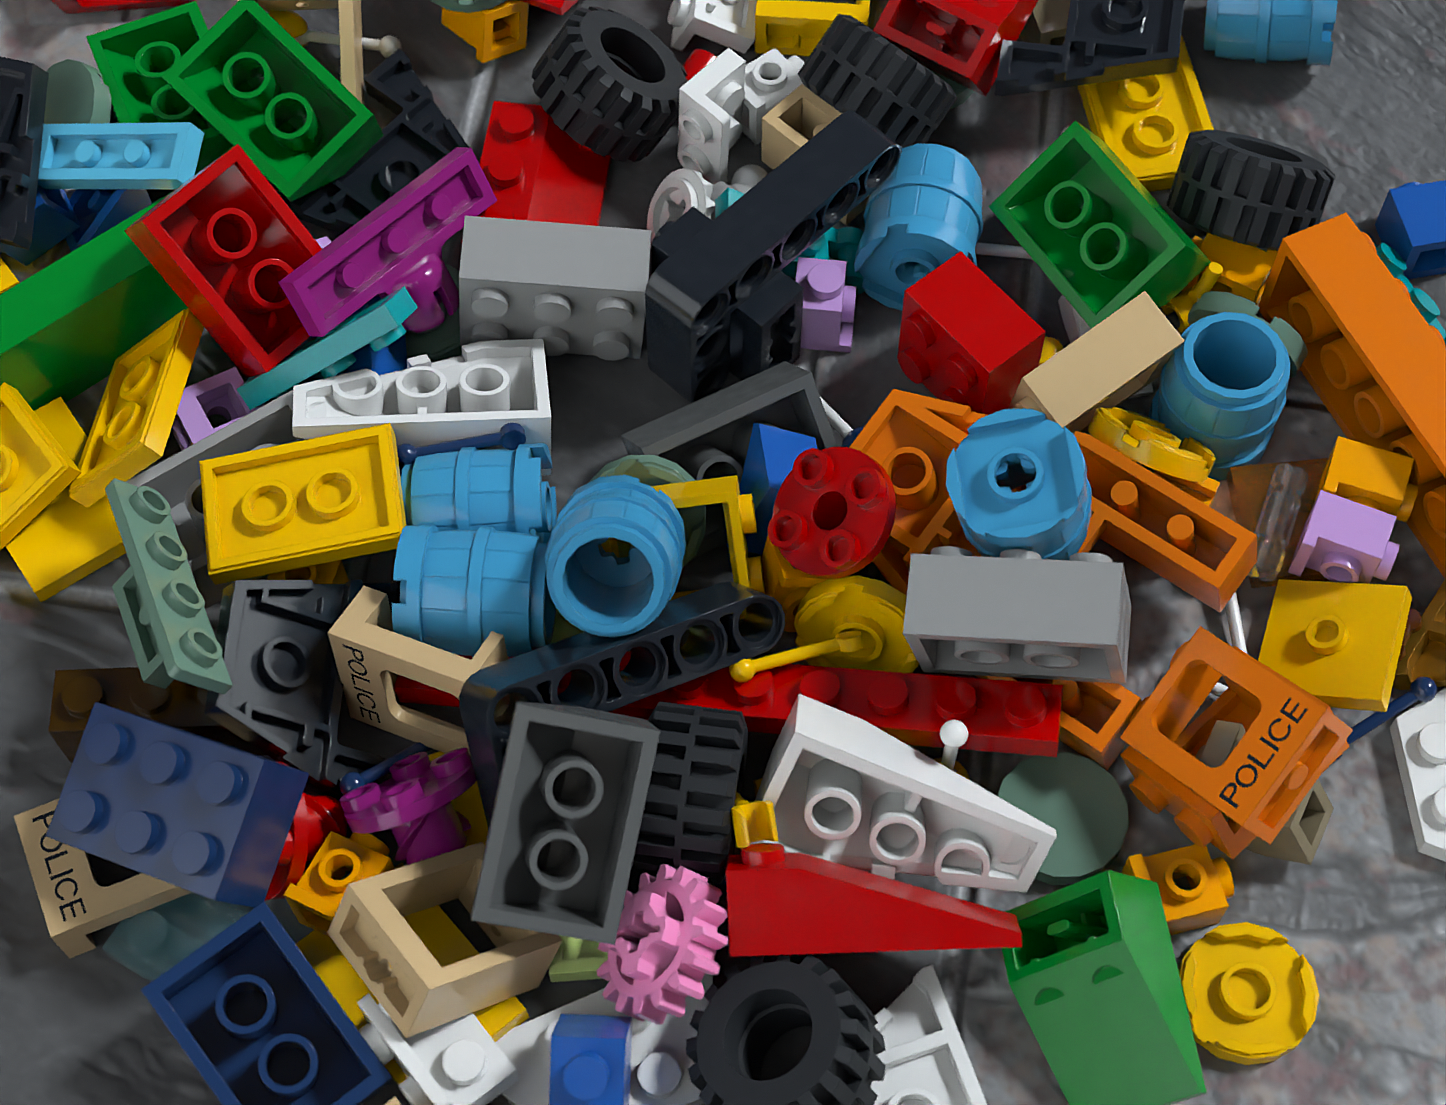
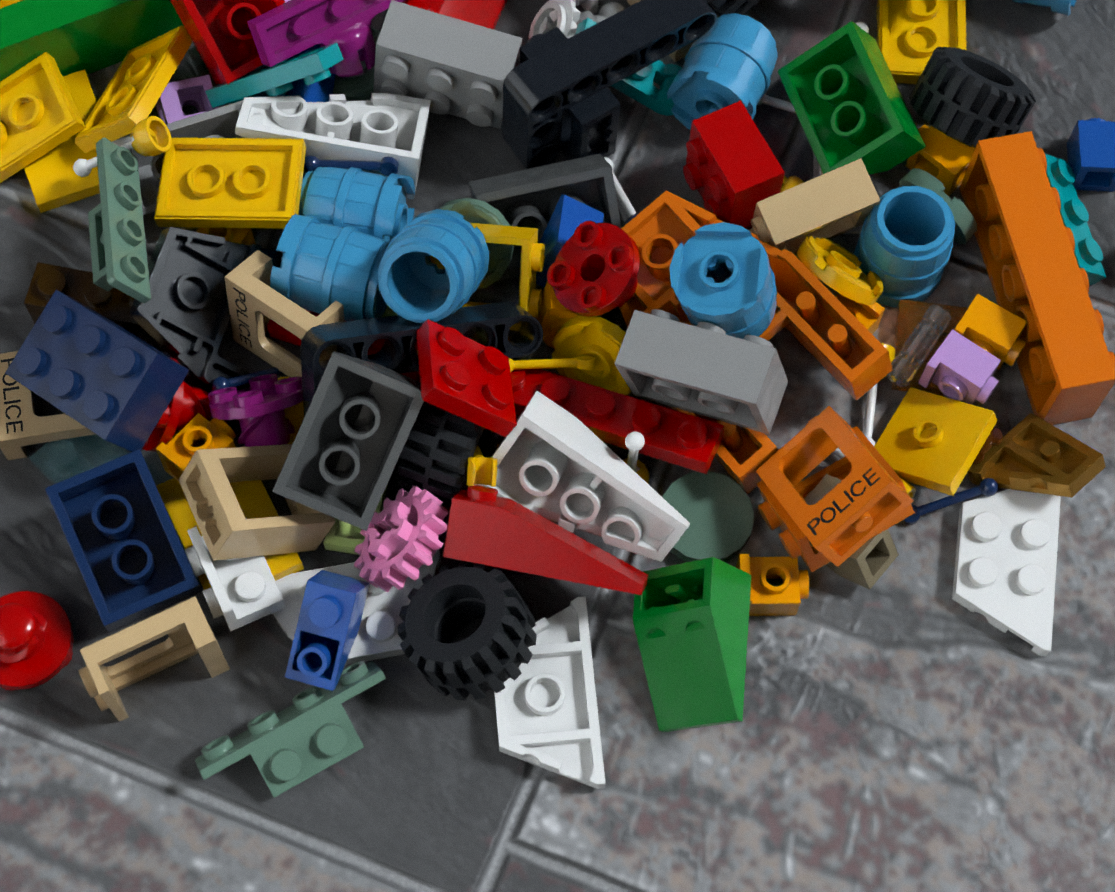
camera: 10 degrees right, 5 degrees up
(175, 468) = (148, 139): none -> yellow hinge
(703, 698) = (466, 378): none -> red plate
(826, 305) = (640, 118): lavender brick -> none
(1184, 301) = (899, 171): yellow hand -> none
(1248, 993) = (799, 666): yellow tile -> none

